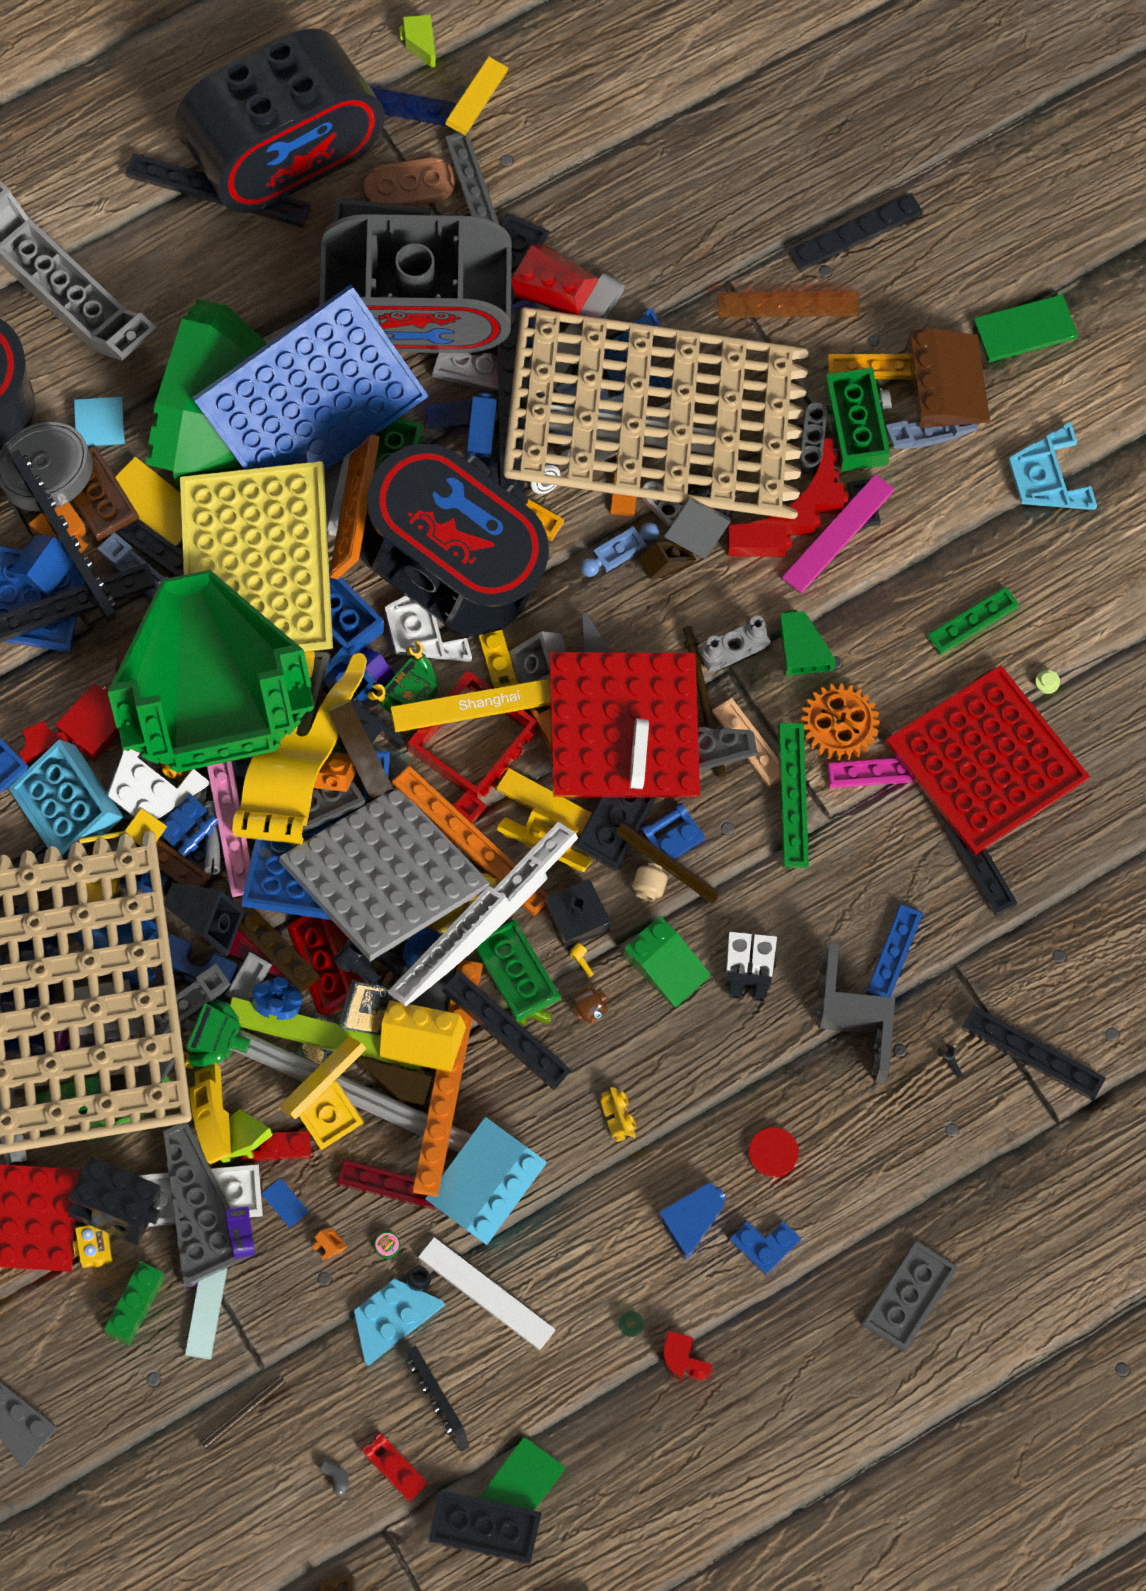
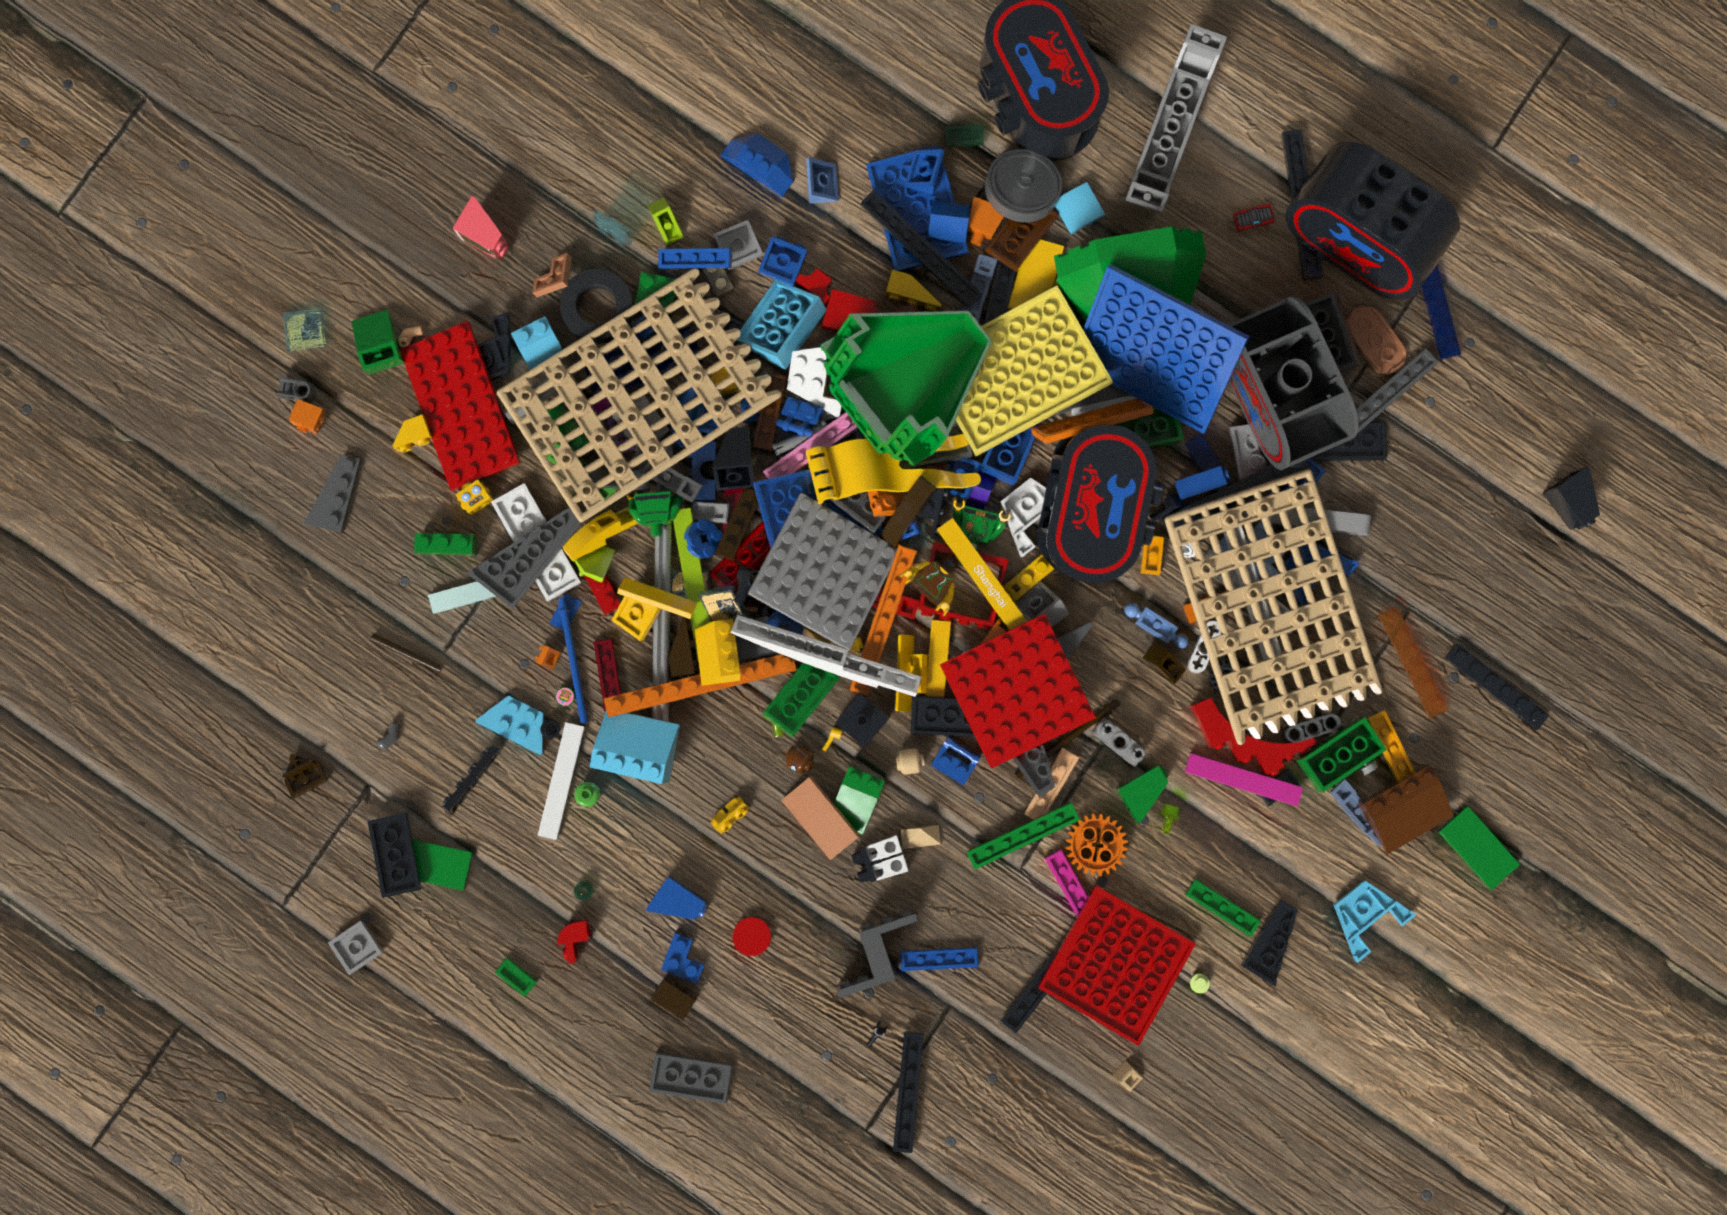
camera: 65 degrees right, 15 degrees up
(59, 526) = (976, 218): black plate -> none
(97, 644) = (906, 288): none -> yellow slope
(115, 1201) = (503, 497): black torso -> none
(141, 823) = (783, 384): yellow piece -> none
(206, 246) = (1253, 217): none -> tile
(240, 1232) = (518, 594): dark purple leg -> none
(285, 1201) = (572, 659): none -> blue bar
(394, 1467) = (413, 773): red plate -> none
(419, 37) = (1499, 290): lime slope -> none
(456, 759) = (933, 582): none -> torso
(477, 96) = (1470, 356): yellow tile -> none
(506, 1030) = (752, 709): black plate -> none
(517, 1265) = (587, 794): none -> bright green head
(552, 280) = (1345, 481): red wedge -> none
(639, 752) = (996, 712): white beam -> none
(667, 863) = (929, 768): dark brown axle -> none
(669, 1011) = (820, 818): none -> nougat tile
(687, 62) = (1575, 499): none -> black slope
(697, 527) = (1197, 675): dark grey tile -> none
(698, 1450) = (516, 976): none -> green tile
(743, 910) = (920, 836): none -> tan slope
(806, 1271) = (674, 998): none -> dark brown brick
(841, 627) = (1170, 813): none -> clear neon green piece
(1036, 587) = (1269, 947): none -> black wing
(1119, 805) = (1127, 1076): none -> tan slope

